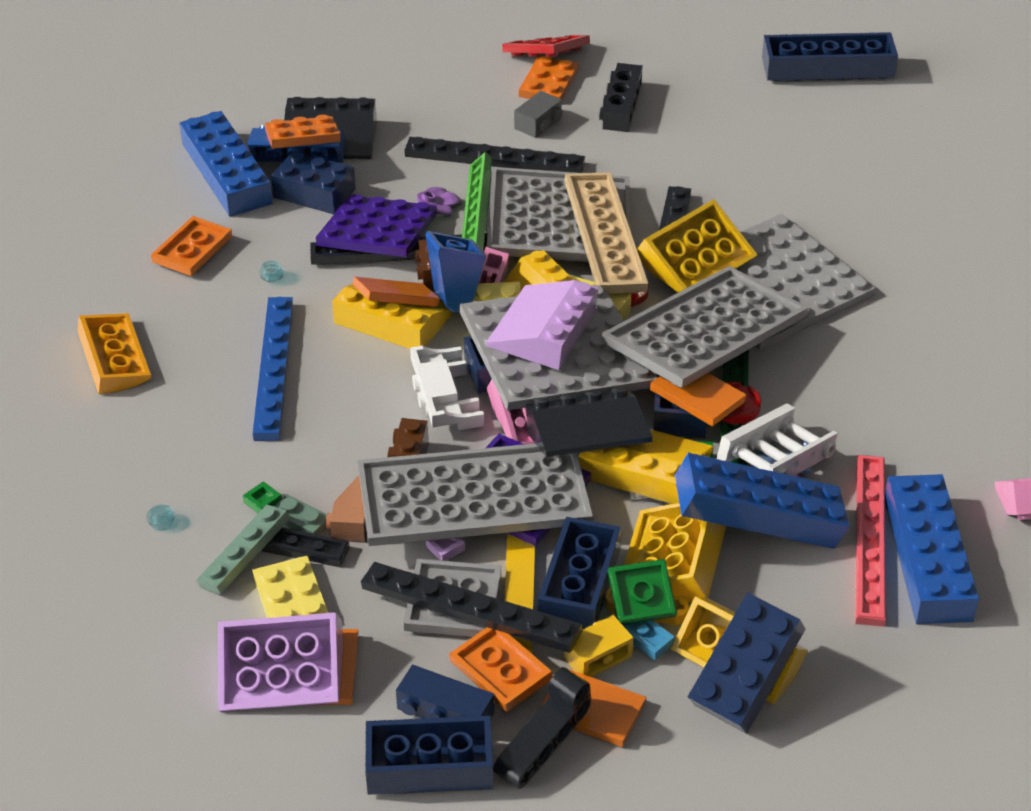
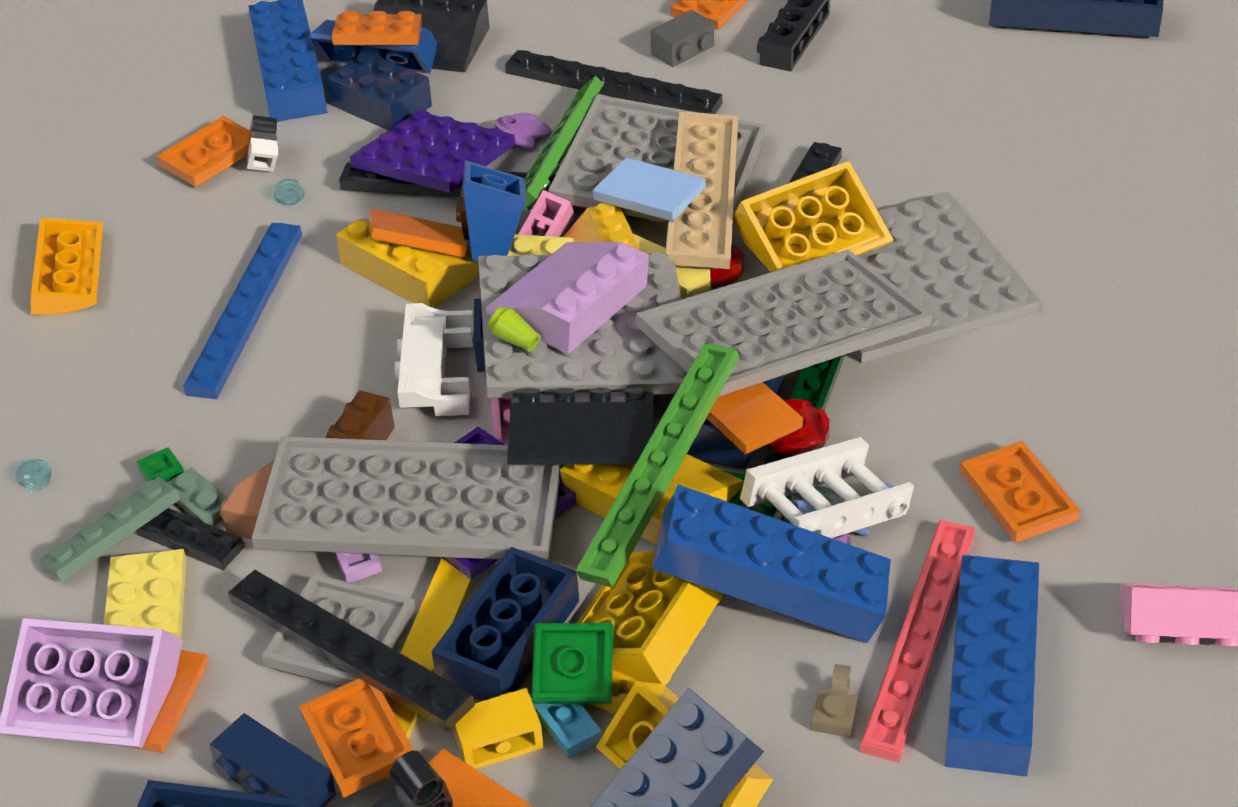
camera: 15 degrees right, 0 degrees up
(237, 234) = (262, 143): none -> leg
(514, 355) = (512, 328): none -> lime cone
(568, 237) = (649, 189): none -> light blue tile
(659, 442) = (657, 465): none -> bright green plate
(829, 597) = (835, 708): none -> dark tan plate
(906, 427) = (1019, 491): none -> orange plate

